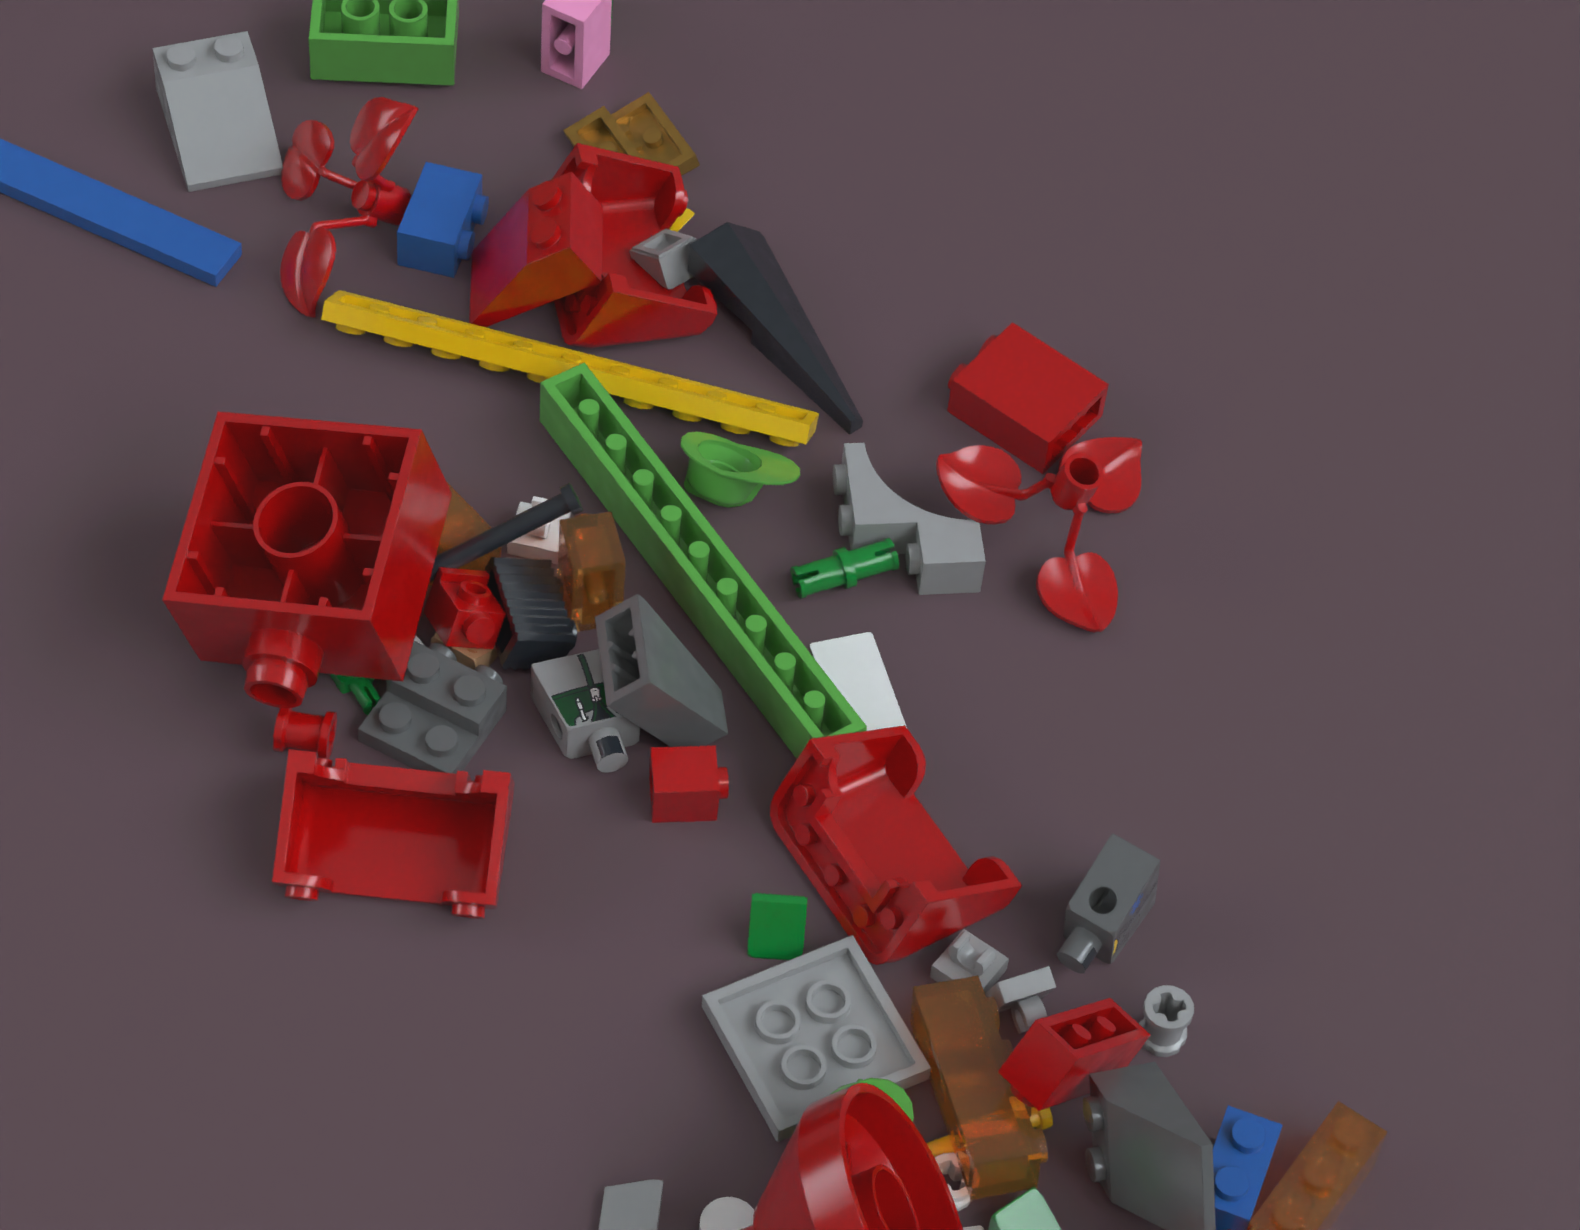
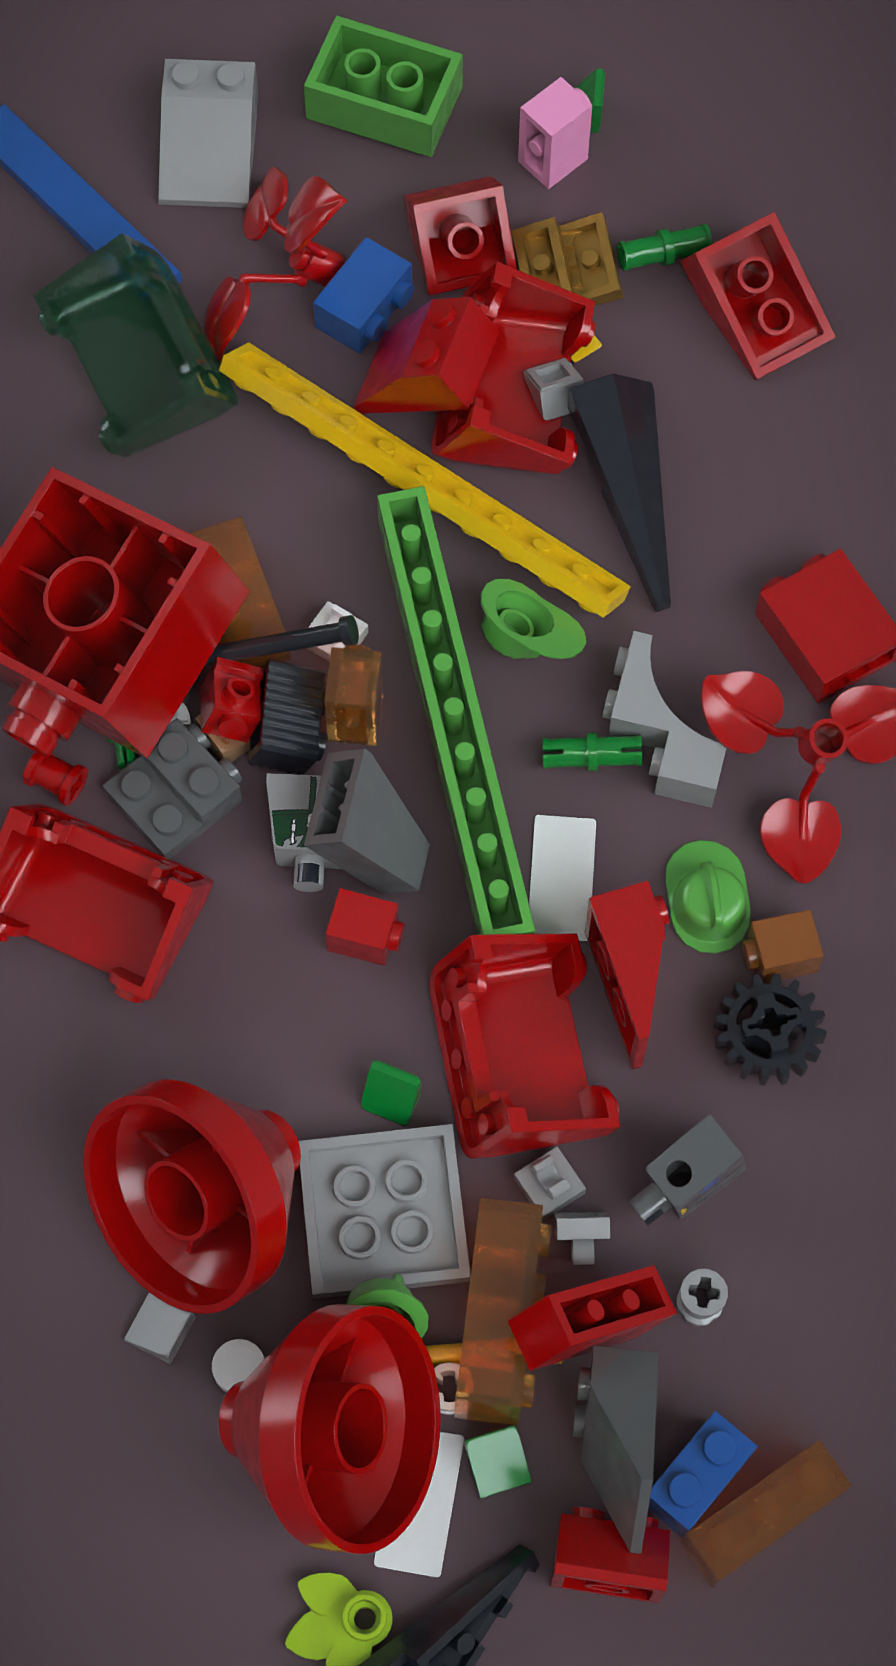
camera: 25 degrees right, 15 degrees up
(225, 315) = (137, 345): none -> clear green windscreen
(513, 140) = (459, 232): none -> red slope
(623, 1054) = (191, 1192): none -> red cone
(722, 109) = (663, 247): none -> green pin
(833, 128) = (759, 296): none -> red slope
(967, 736) = (626, 944): none -> red slope
(1012, 670) = (707, 896): none -> bright green piece
(1108, 689) = (783, 946): none -> dark orange brick
(1126, 765) = (766, 1009): none -> black gear

